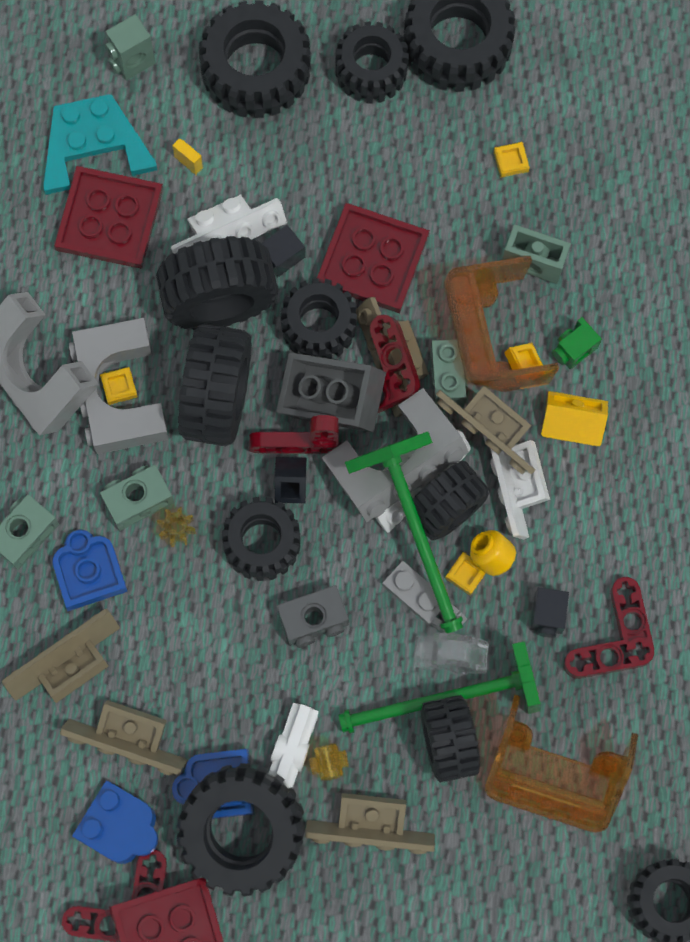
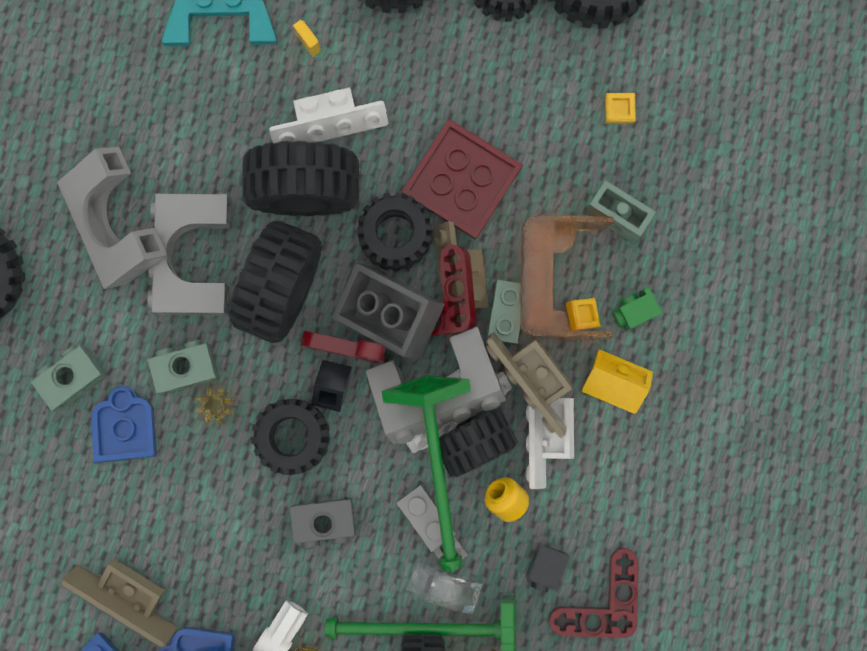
camera: 10 degrees right, 10 degrees up
(65, 663) = (85, 514): dark tan bracket -> none
(109, 217) = (218, 83): dark red plate -> none
(118, 385) = (192, 253): yellow tile -> none
(284, 250) = (376, 154): black brick -> none
(465, 574) = (476, 511): yellow tile -> none

